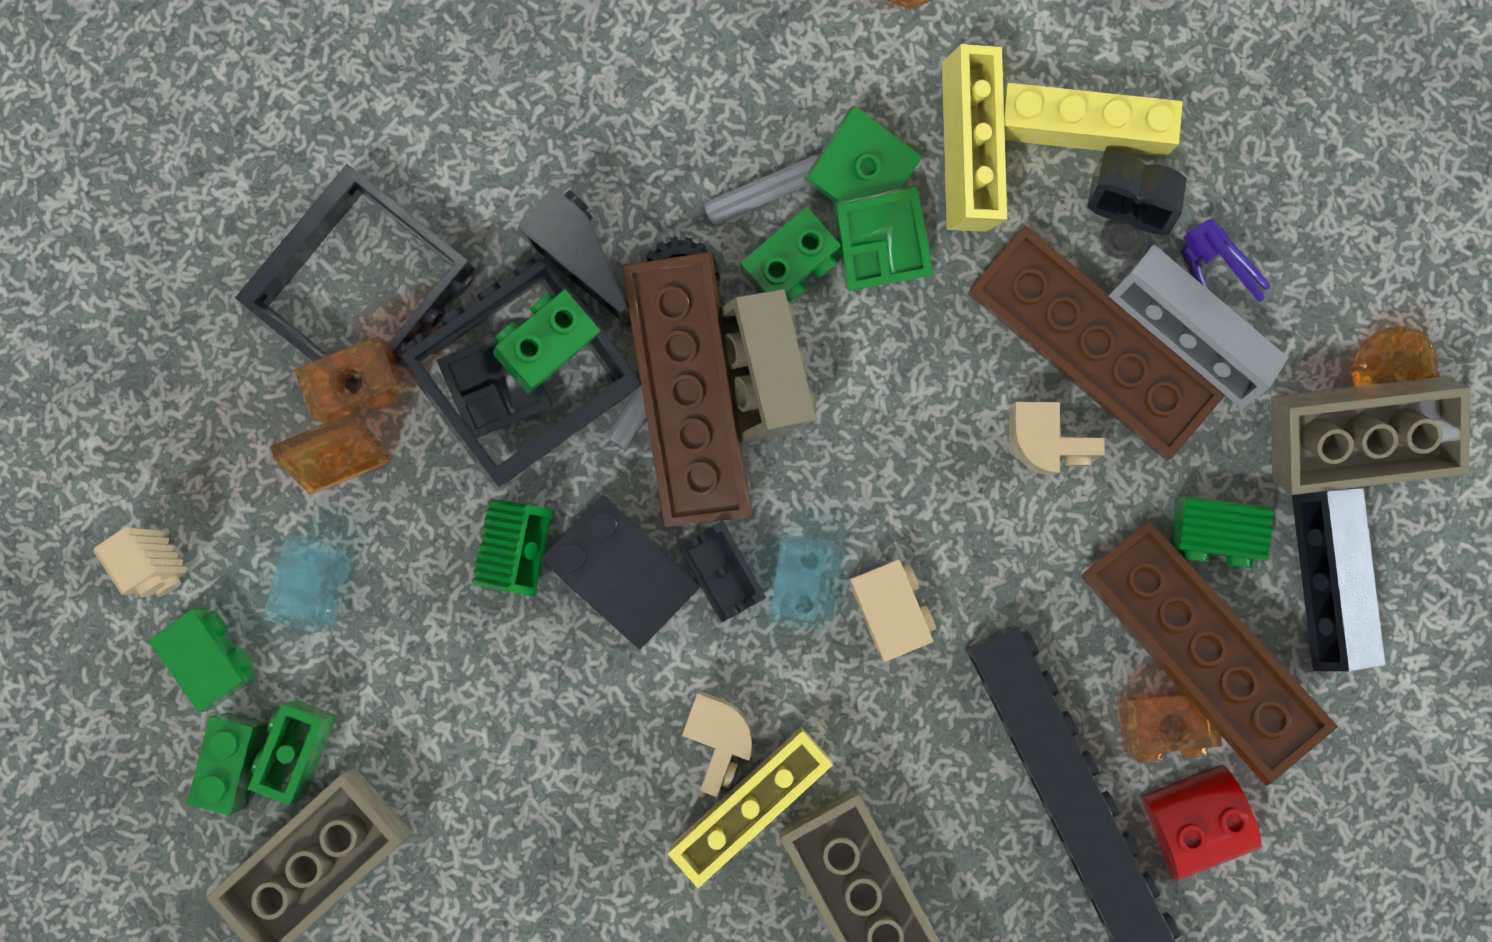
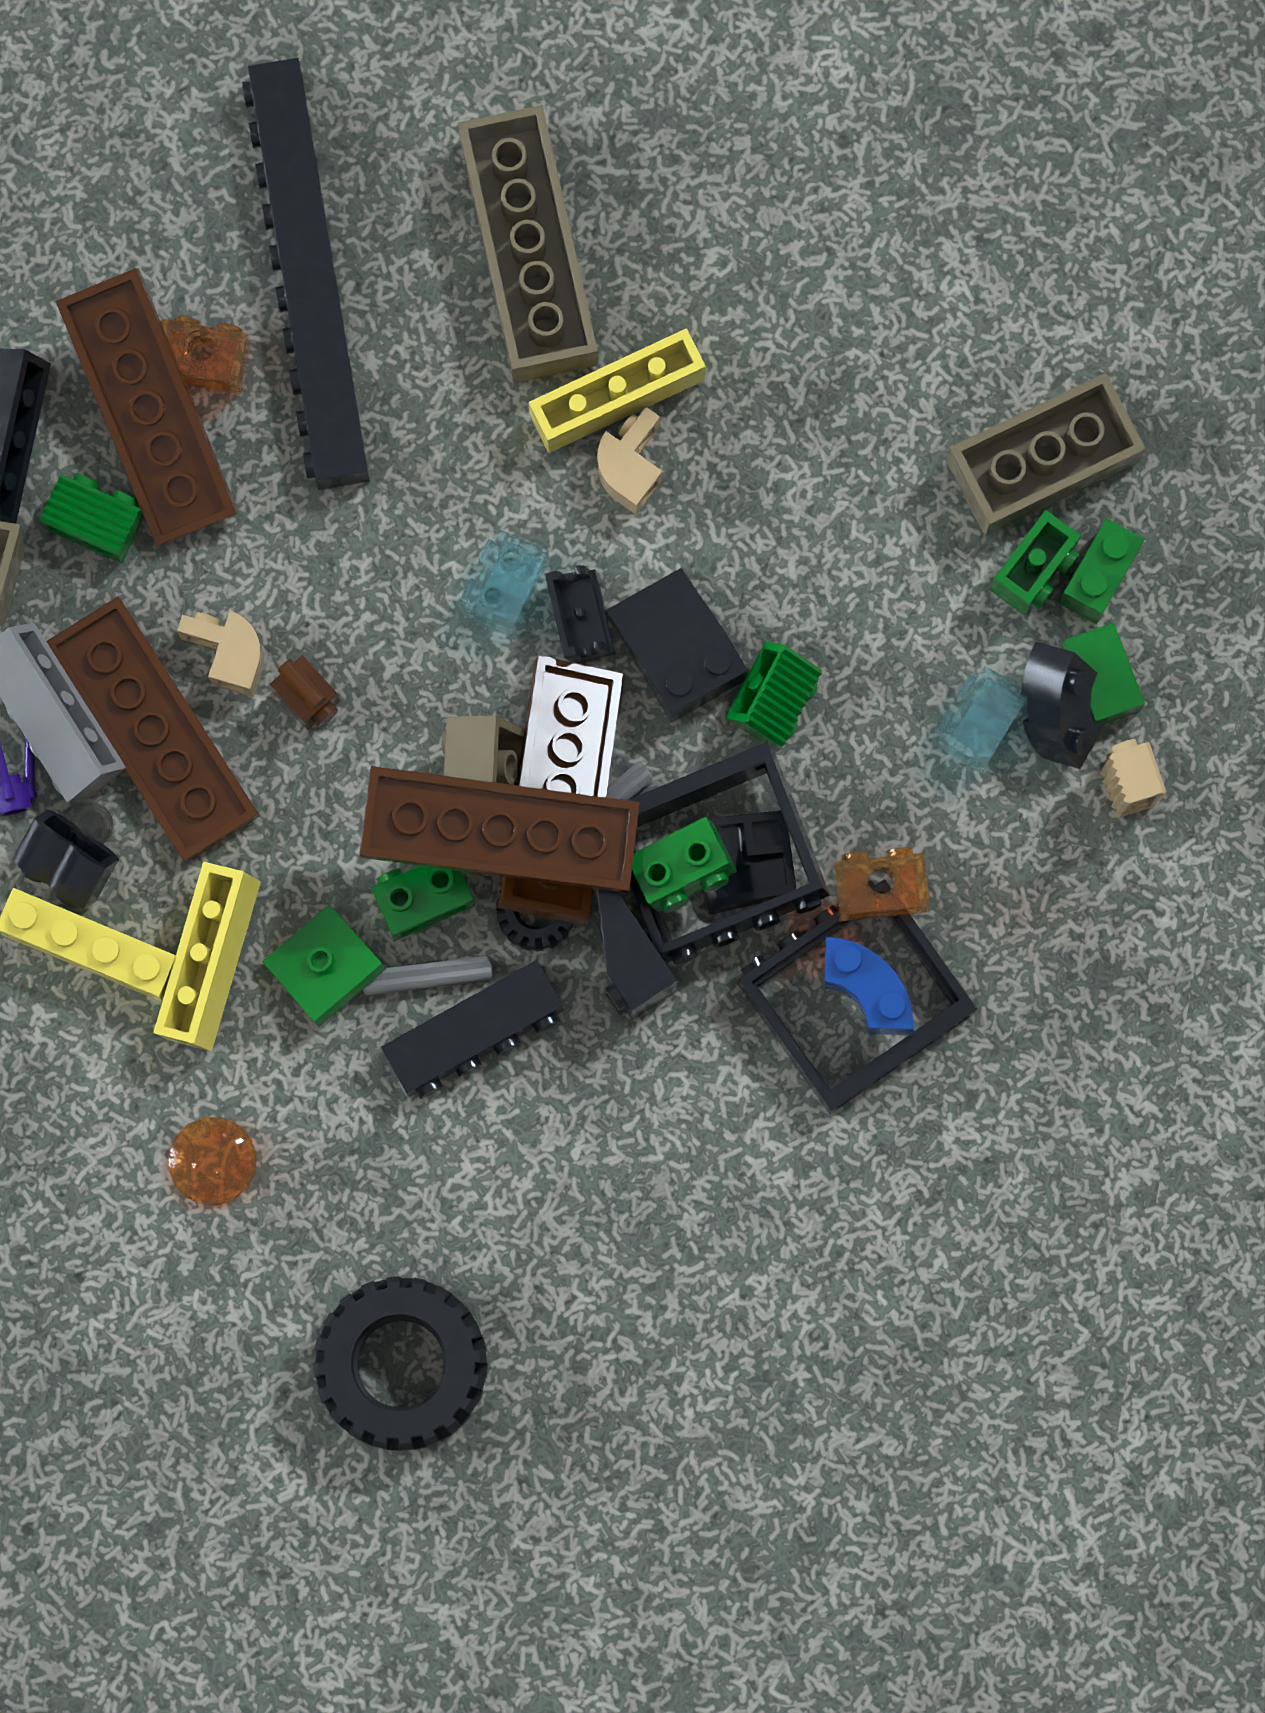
camera: 170 degrees left, 5 degrees down
(228, 613) = (1059, 705): none -> black brick
(330, 453) = (922, 829): clear orange plate -> none
(342, 287) = (871, 985): none -> blue brick
(706, 147) = (473, 1029): none -> black brick
(729, 312) = (499, 829): none -> reddish brown plate
(882, 238) = (324, 890): green plate -> none
(892, 609) = (429, 533): tan brick -> none
(961, 418) = (305, 693): none -> reddish brown brick
(1202, 822) = (201, 259): red brick -> none

